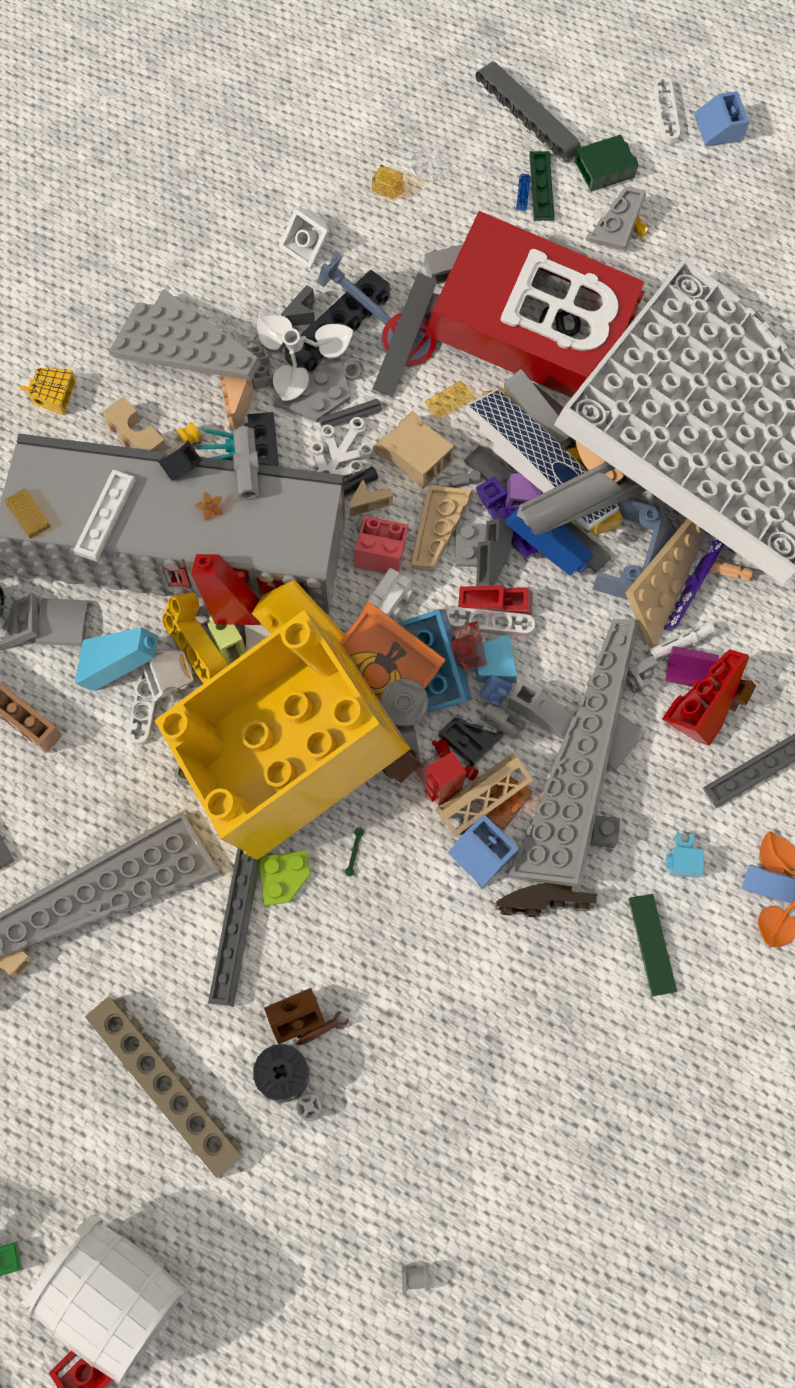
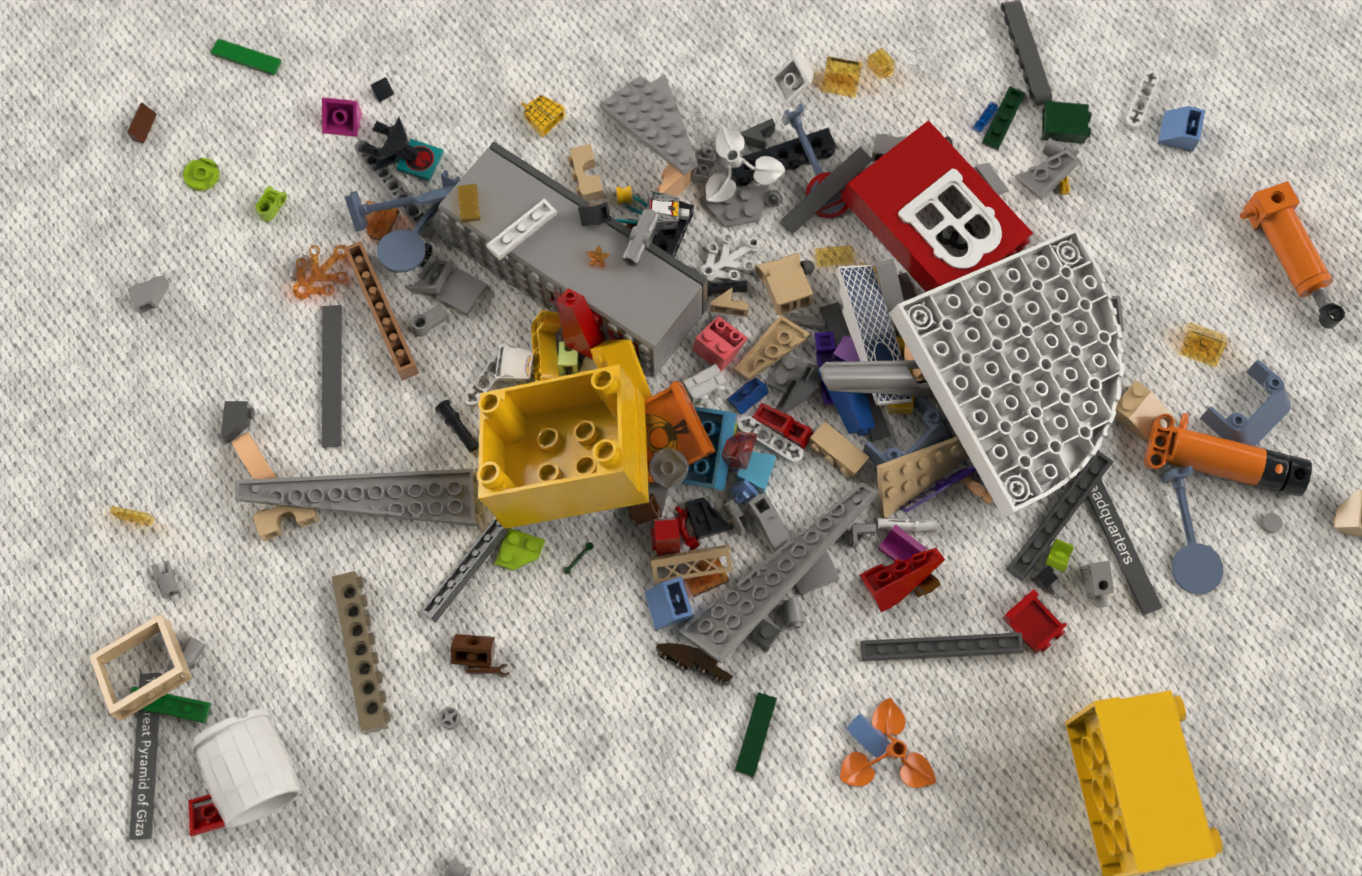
camera: 30 degrees right, 0 degrees up
(41, 669) = (430, 320): none -> light grey piece
(113, 656) = (481, 334): medium azure slope -> none
(129, 768) = (453, 419): none -> black pin
(248, 417) = (667, 208): none -> torso
(286, 1088) = (453, 682): black wheel -> none
(347, 414) = (748, 232): dark grey axle -> none
(354, 212) = (841, 76): none -> clear yellow slope
(429, 421) = (808, 266): none -> dark grey hinge
(440, 586) = (748, 395): none -> blue slope
(569, 598) = (838, 450): none -> tan brick
(609, 193) = (1053, 148): none -> light grey hinge
(619, 794) = (793, 613): none -> light grey brick
(685, 859) = (814, 685): medium azure brick -> none

